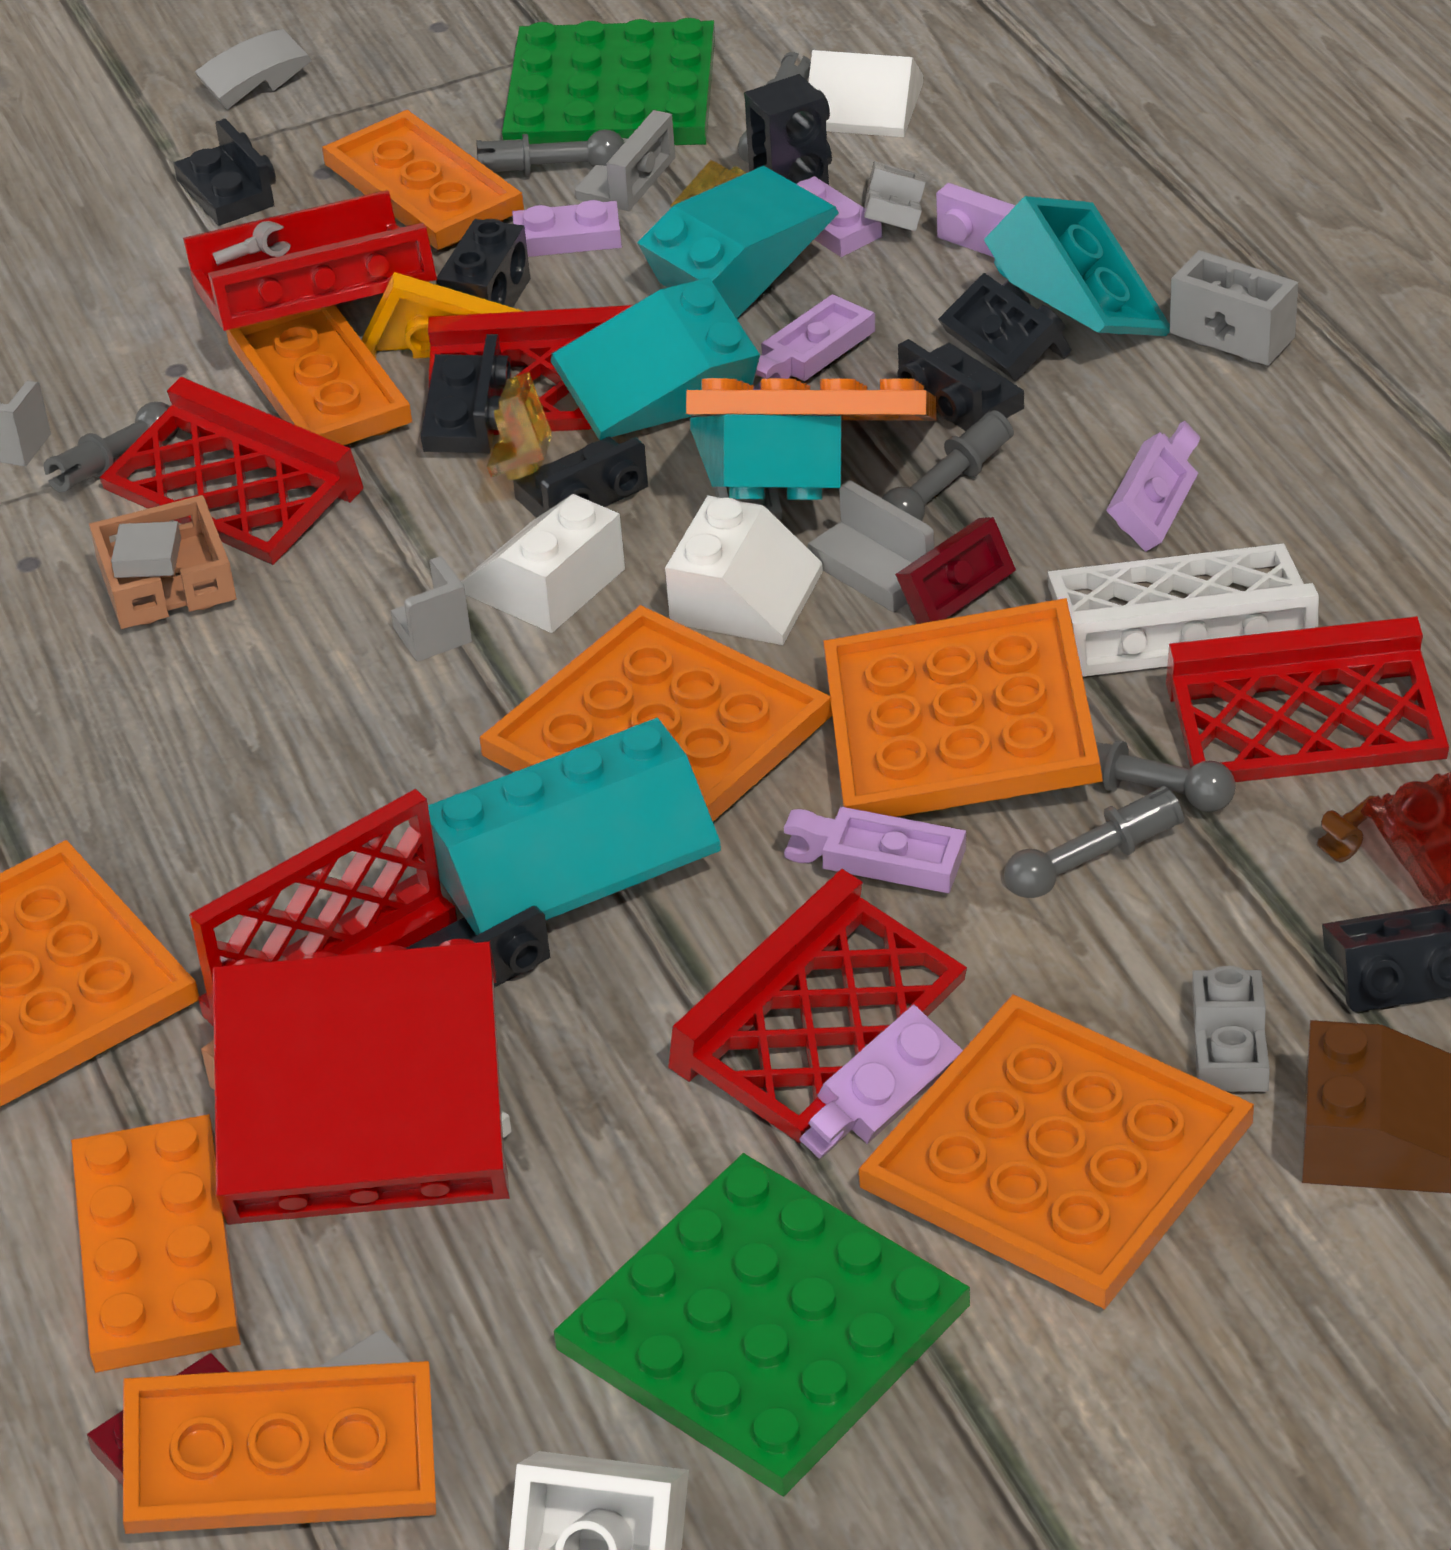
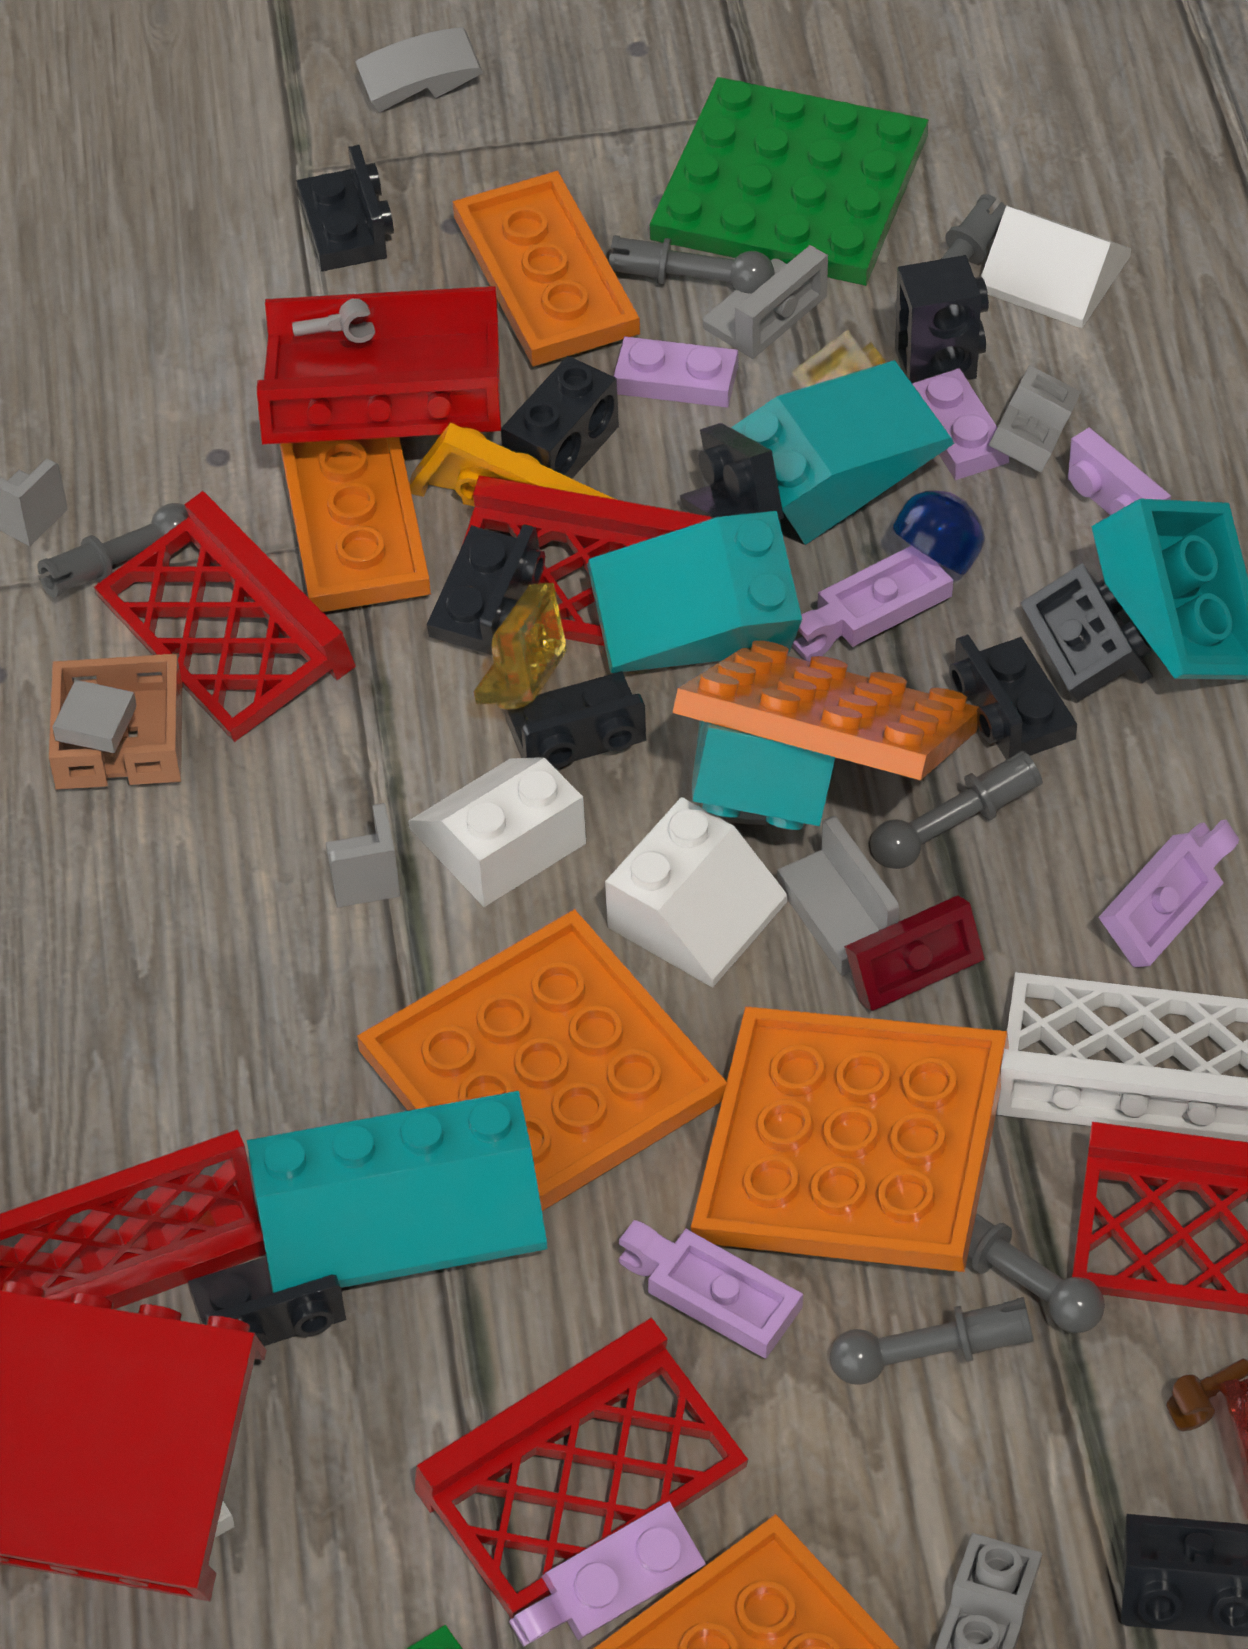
camera: 15 degrees right, 10 degrees up
(657, 263) = (738, 476): none -> black bracket
(851, 275) = (942, 529): none -> clear blue hair

